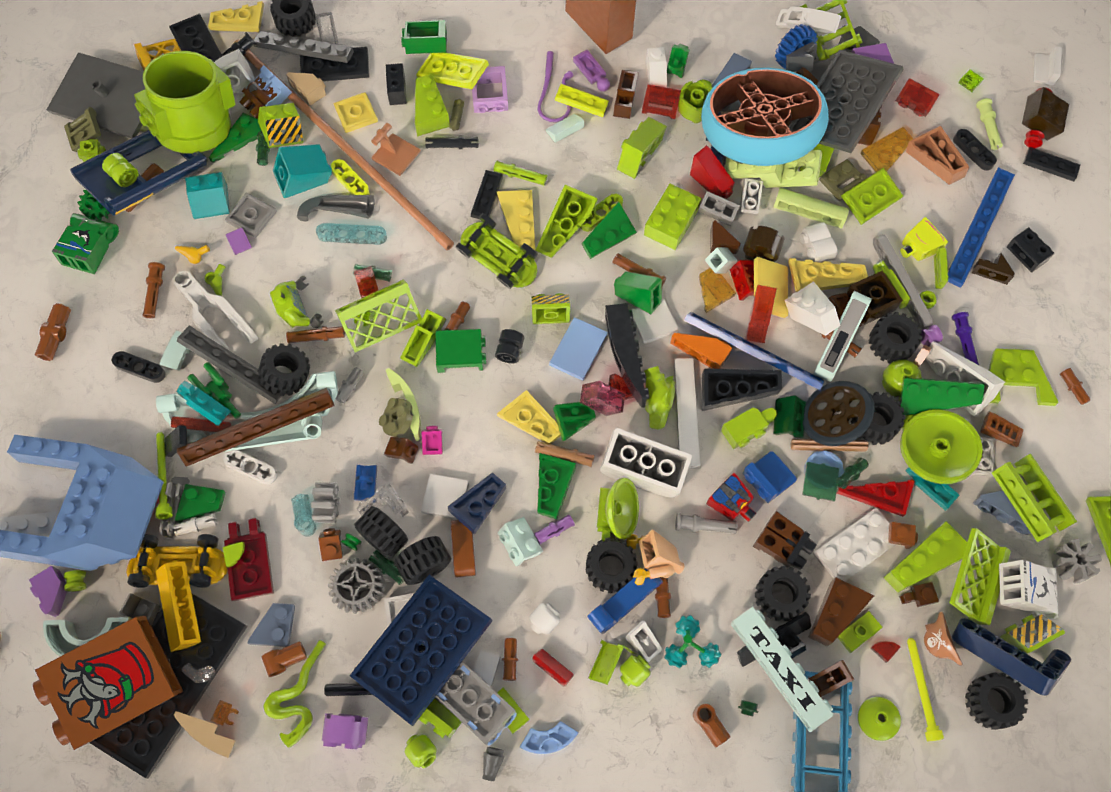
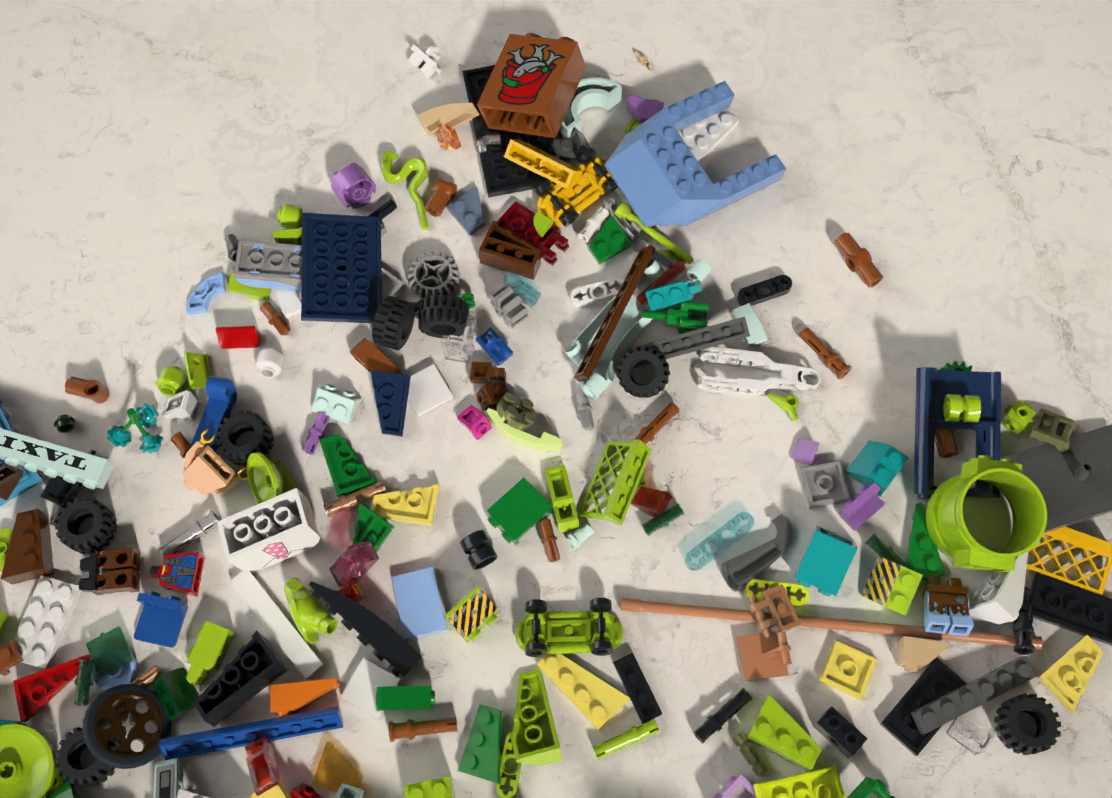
camera: 145 degrees right, 0 degrees up
(84, 243) = (924, 340): green piece -> none
(192, 253) = (831, 409): yellow animal -> none
(244, 181) = (858, 511): none -> medium lavender bracket
(281, 552) = (509, 253): none -> reddish brown wedge
(289, 304) = (698, 428): lime torso -> none
(330, 544) = (480, 288): dark orange bracket -> none
(358, 163) = (780, 608): none -> medium nougat plate
(391, 472) = (483, 372): none -> reddish brown plate
(435, 305) = (579, 536): none -> light aqua pin

